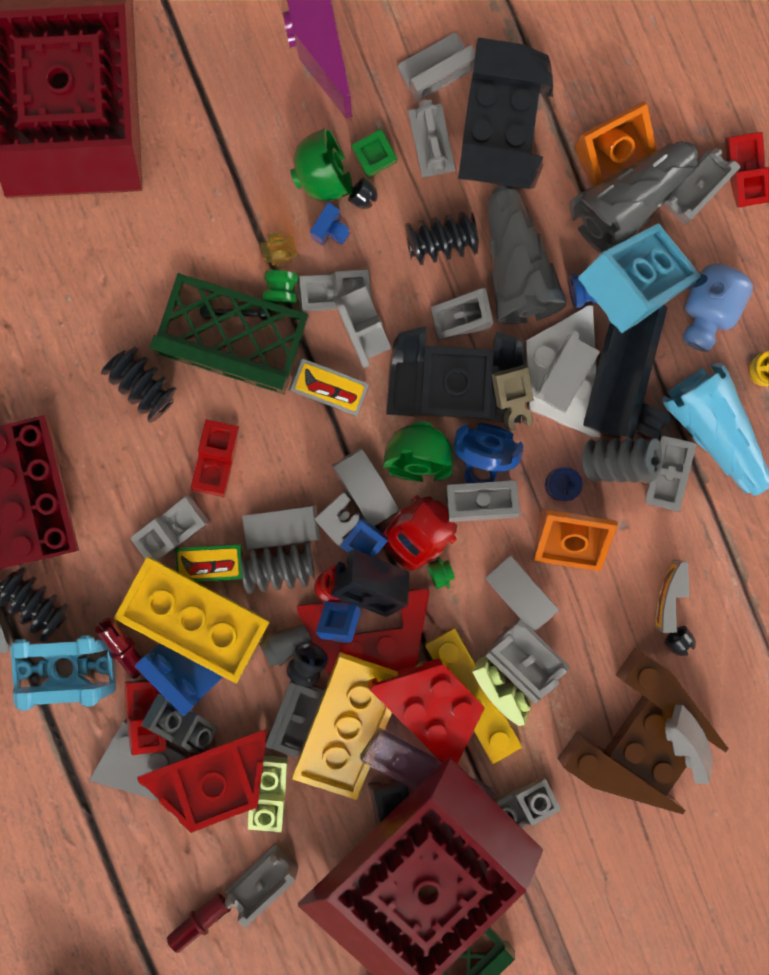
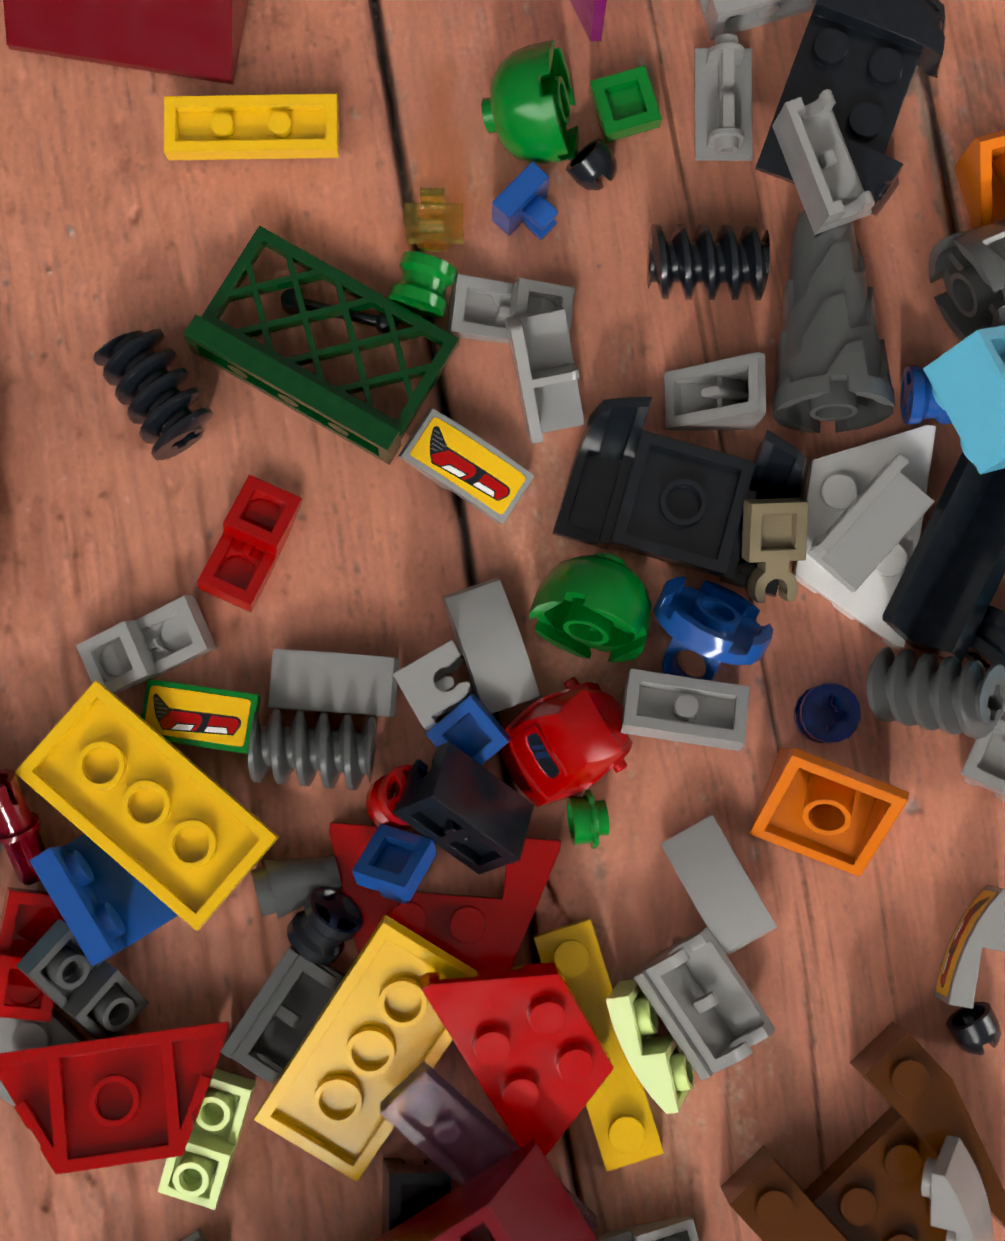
camera: 20 degrees right, 5 degrees down
(159, 214) = (251, 127): none -> yellow plate
(495, 169) = (821, 163): none -> light grey hinge

